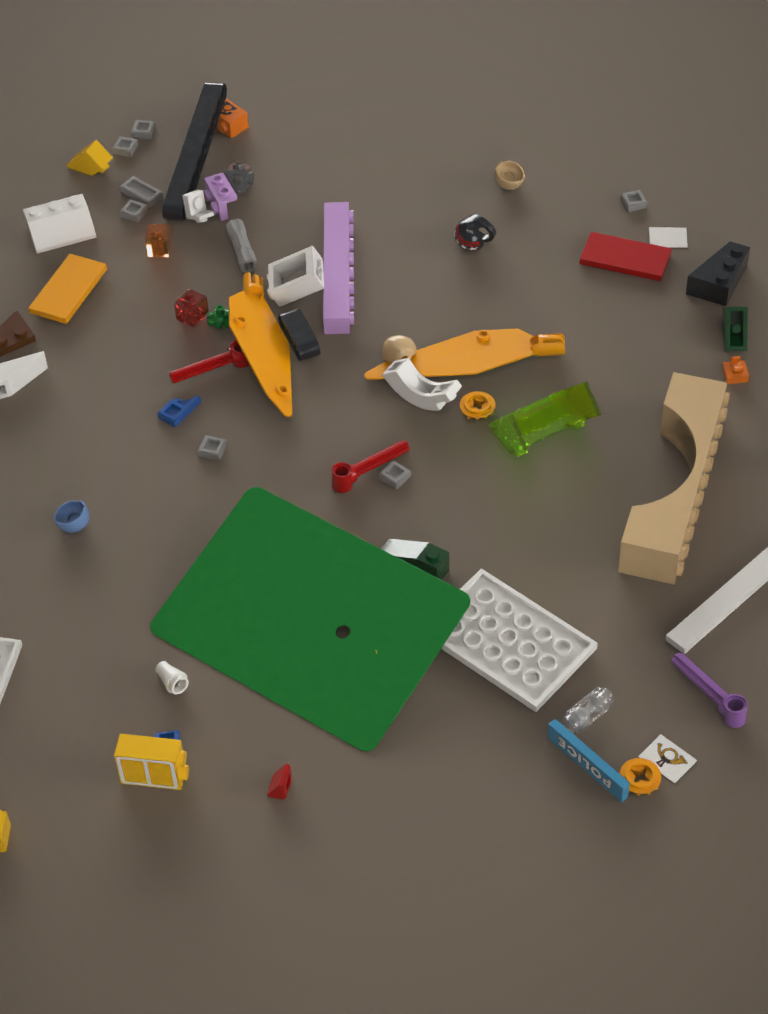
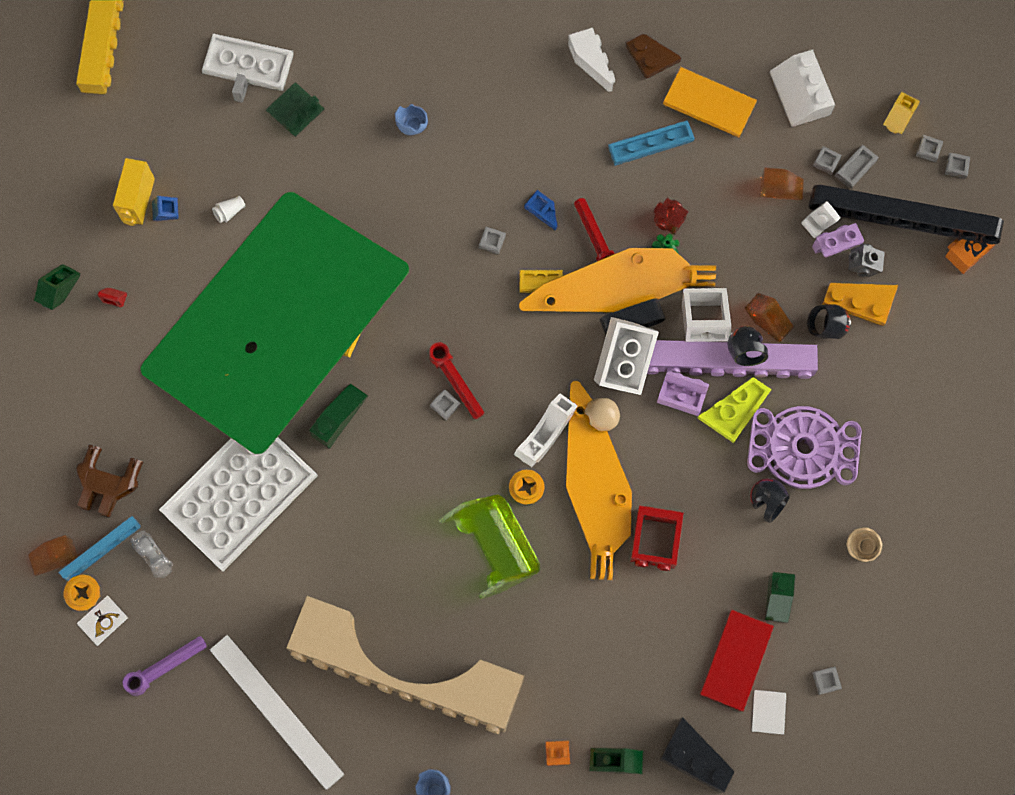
camera: 90 degrees right, 25 degrees up
(18, 677) = (240, 88): none -> light grey tile
(48, 626) = (295, 109): none -> clear green hinge
(108, 332) = (651, 142): none -> dark azure tile
(243, 250) = (781, 261): light grey axle -> none
(258, 406) = (532, 279): none -> yellow plate
(270, 840) = (56, 286): none -> dark green slope
(276, 185) = (863, 300): none -> light orange wing
(292, 239) = (769, 316): none -> clear orange slope
(300, 196) = (836, 321): none -> black helmet
(329, 238) = (745, 340): none -> black helmet
(341, 328) = (625, 356): none -> white slope
(373, 295) = (683, 393): none -> lavender bracket
(387, 261) = (736, 410): none -> neon yellow wing
(406, 212) = (820, 438): none -> lavender piece
(511, 767) = (104, 484): none -> reddish brown connector
(523, 295) = (657, 515): none -> red window
(562, 227) = (779, 596): none -> dark green slope
(601, 806) = (53, 555): none -> clear orange slope

